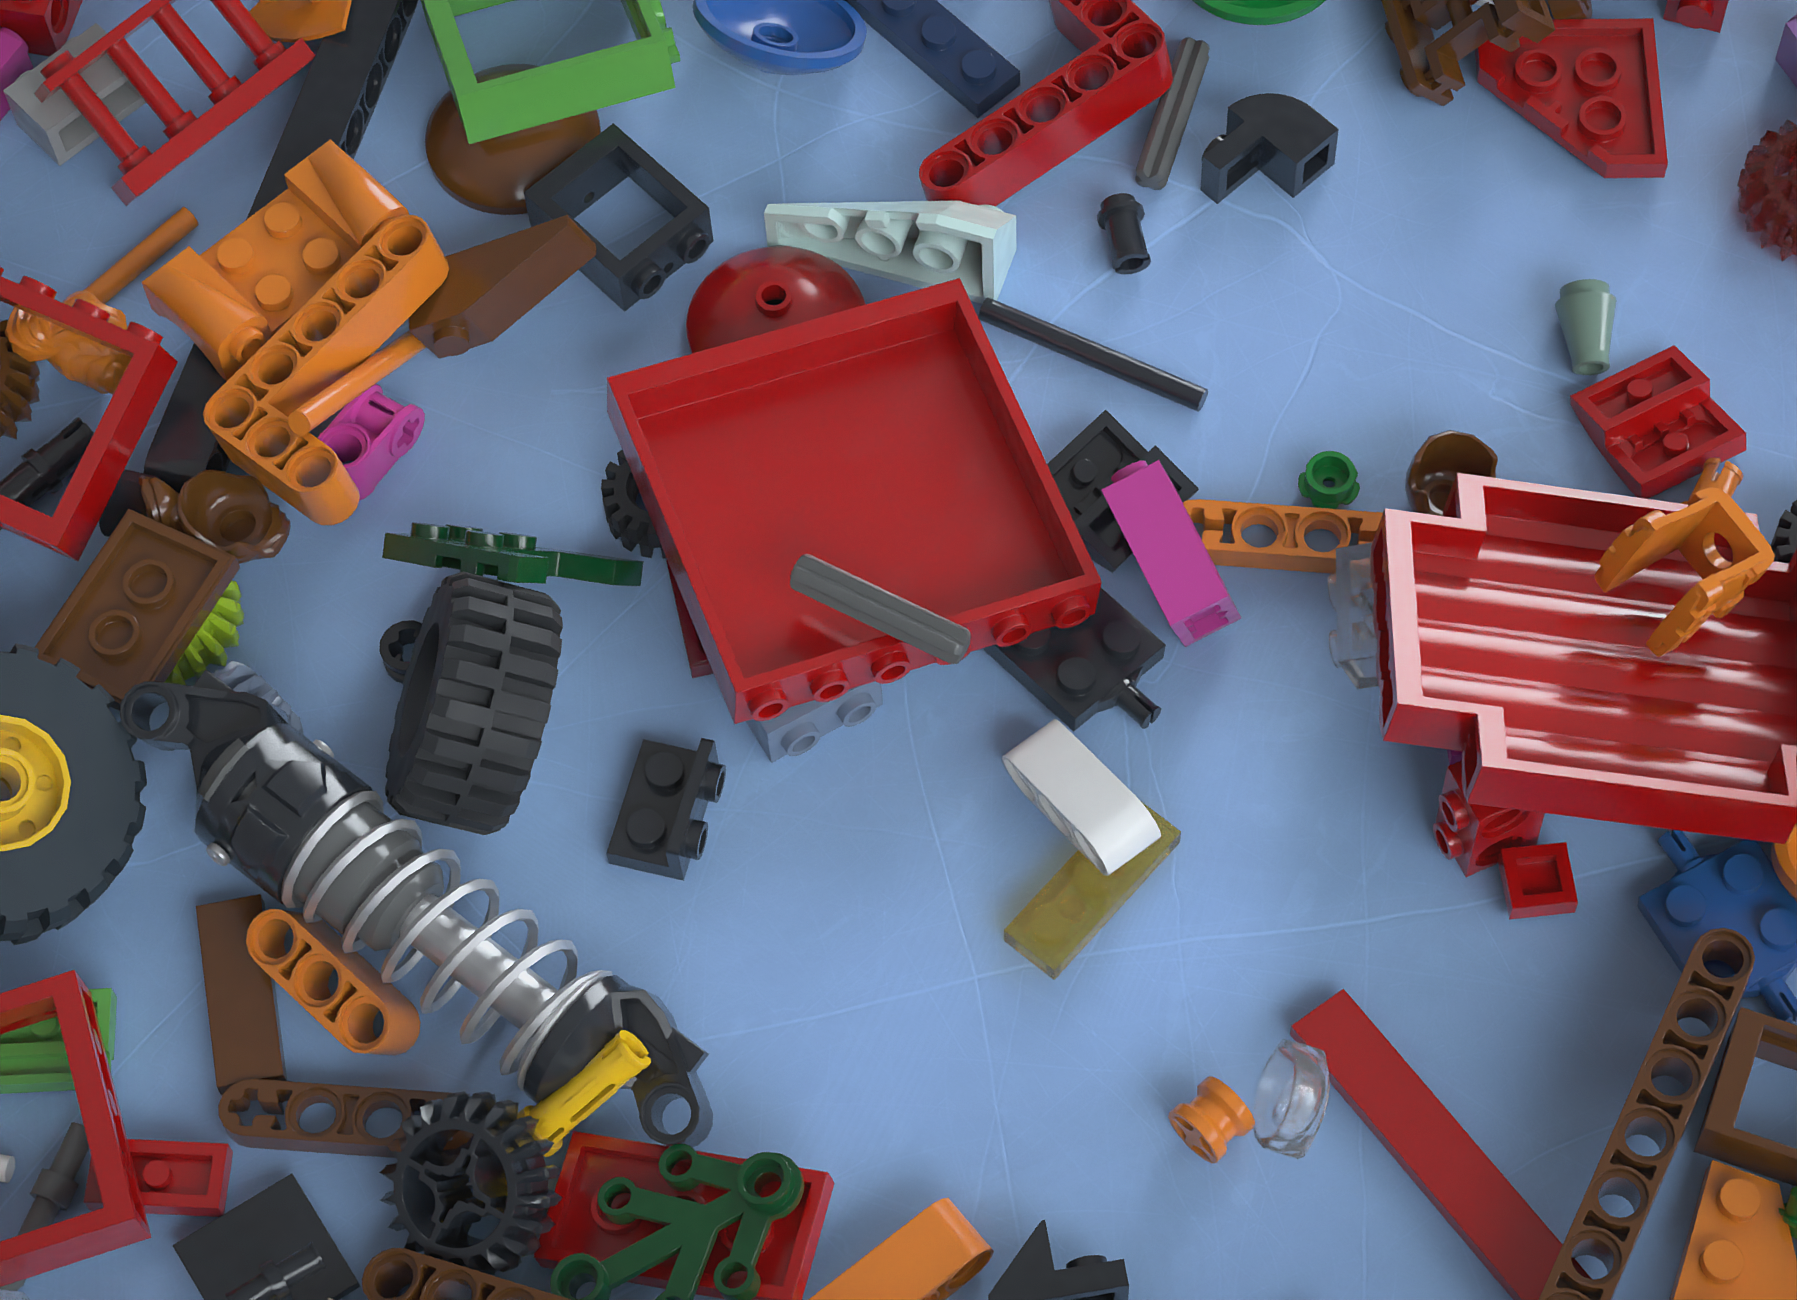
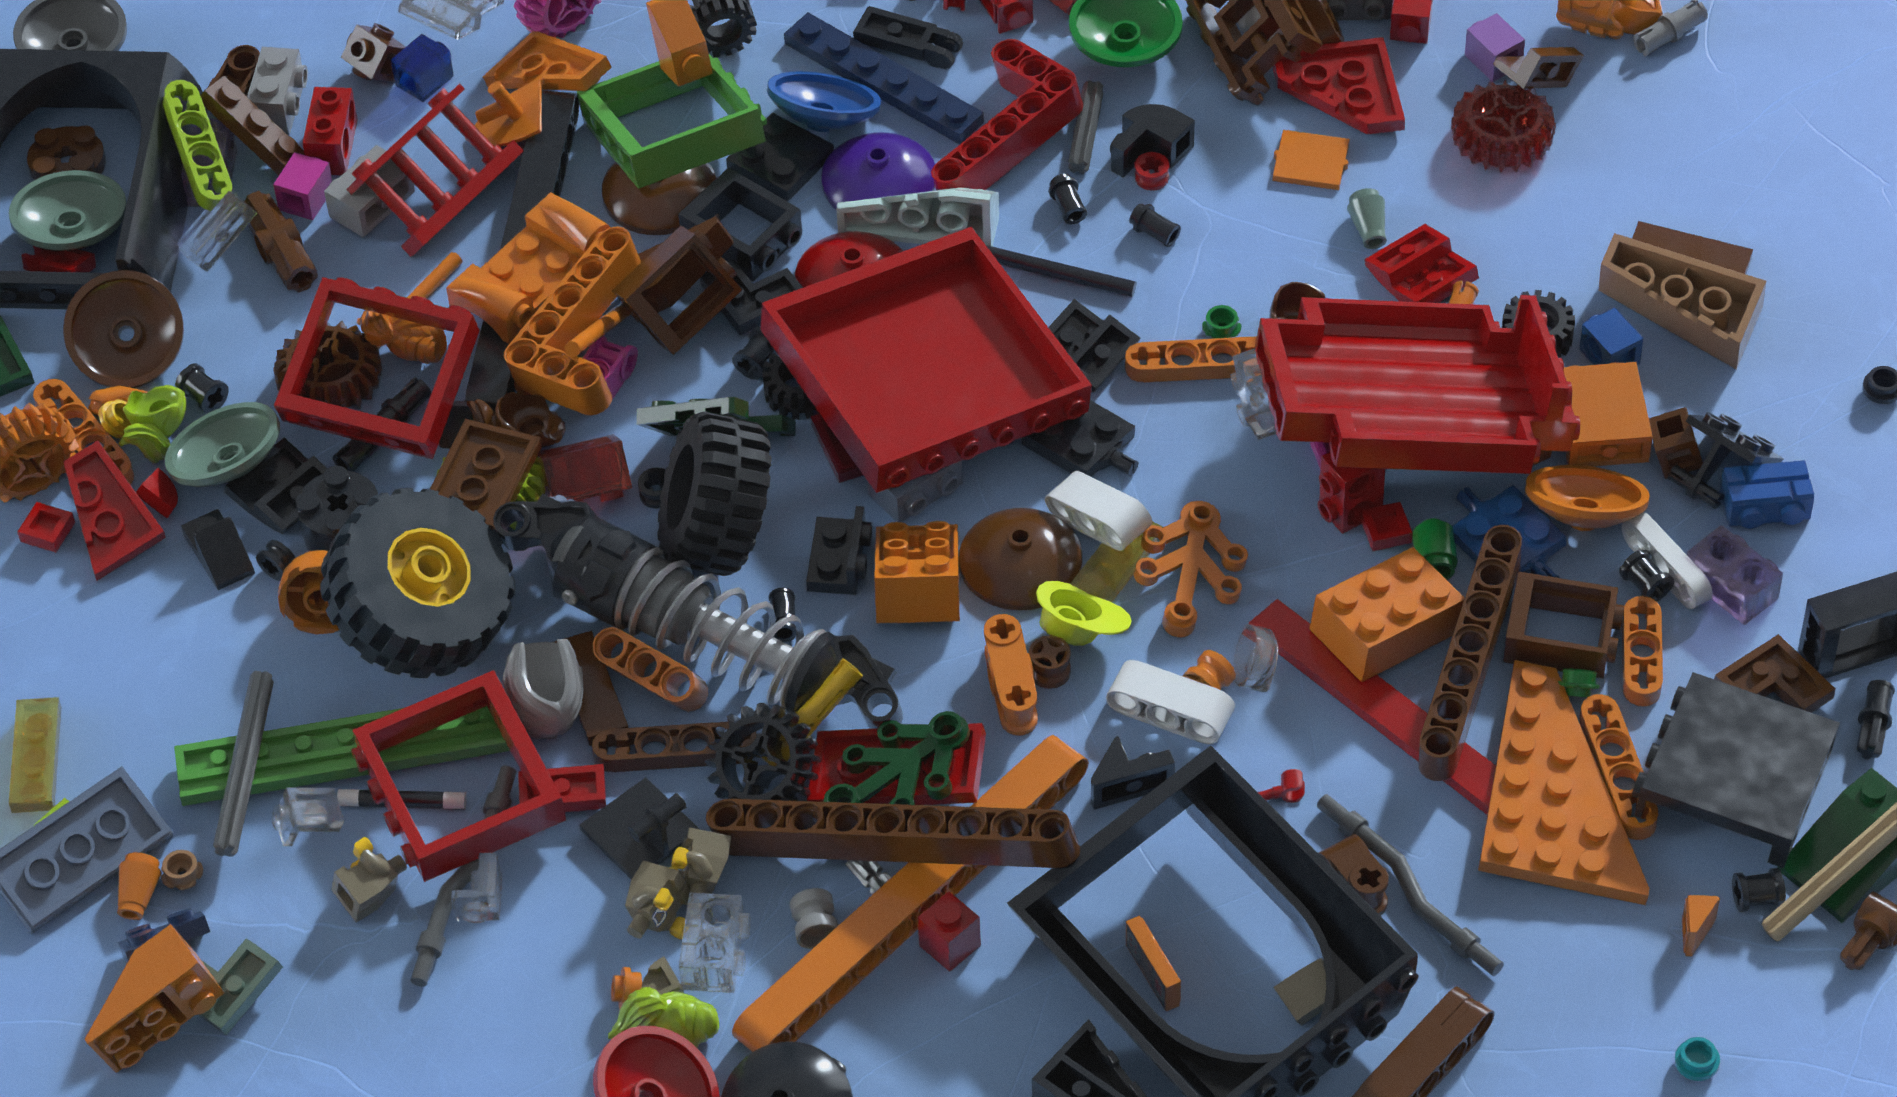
camera: 10 degrees left, 10 degrees down
(158, 993) = (544, 686): none -> light grey hair
(301, 611) = (586, 469): none -> clear red slope
(524, 363) = (700, 311): none -> reddish brown window
(561, 903) = (783, 605): none -> black pin
(595, 445) = (753, 356): none -> black bush
(603, 347) = (745, 308): none -> black plate
(709, 112) = (785, 158): none -> black plate
(780, 862) = (917, 573): none -> orange slope
(879, 162) = (876, 168): none -> dark purple dish
(880, 609) = (958, 410): dark grey axle -> none
(895, 1070) = (1010, 674): none -> orange piece
(954, 887) = (1010, 571): none -> reddish brown dish
(962, 1037) = (1058, 654): none -> reddish brown wheel
(1020, 980) = (1078, 615): none -> neon yellow piece
(1143, 1157) = (1170, 702): none -> white beam
(1170, 551) = (1131, 366): dark pink window -> none
(1219, 898) = (1191, 559): none -> orange plant
(1251, 294) = (1147, 220): none -> black pin
(1261, 218) = (1149, 180): none -> red bush
(1511, 210) = (1311, 159): none -> orange piece
(1516, 1051) = (1386, 614): none -> orange brick
(1610, 936) = (1436, 543): none -> green brick
(1691, 533) = (1446, 308): orange piece -> none

